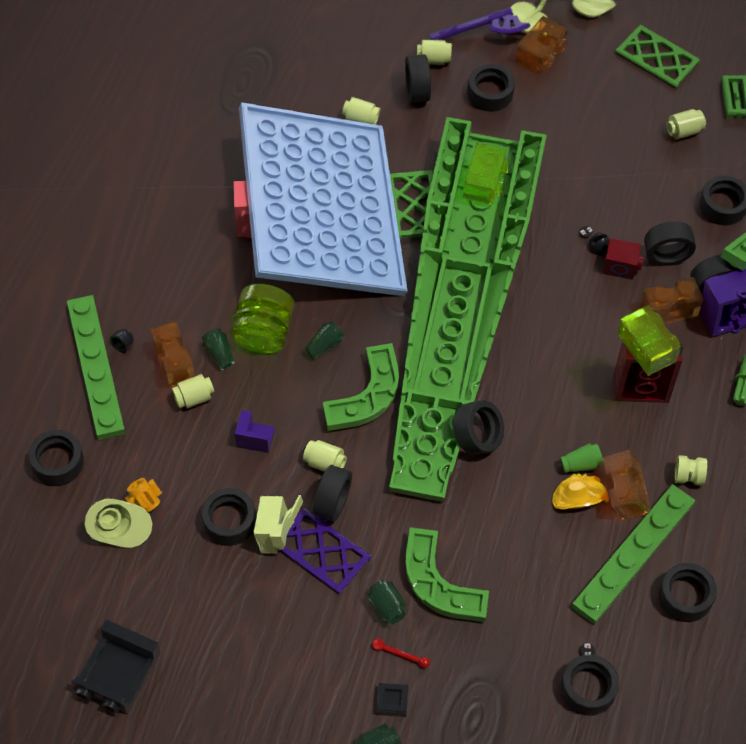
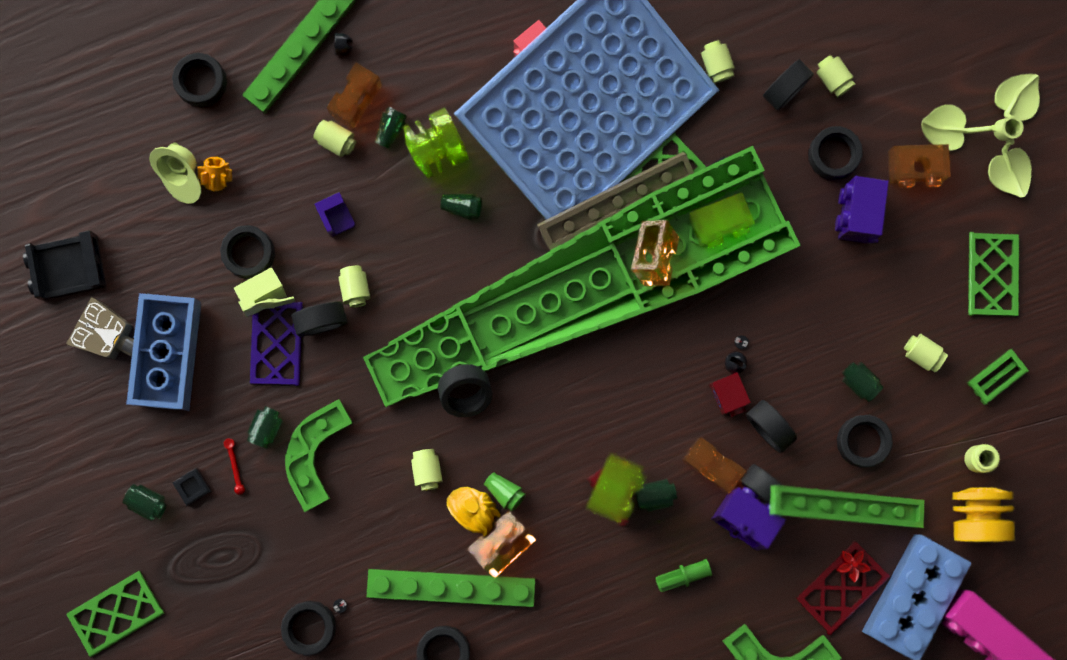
camera: 55 degrees right, 25 degrees up
(200, 675) = (102, 331): none -> dark tan torso
(260, 615) = (151, 338): none -> medium blue brick
(374, 399) = (440, 286): bright green plate -> none
(409, 239) = (611, 201): none -> dark tan plate
(472, 221) = (661, 243): none -> clear orange brick
(493, 18) = (916, 100): dark purple piece -> none
(520, 503) = (426, 469): none -> yellowish green brick
(549, 90) = (862, 210): none -> dark purple brick
(677, 173) = (862, 381): none -> clear green brick
(690, 470) = (558, 587): yellowish green wheel -> none

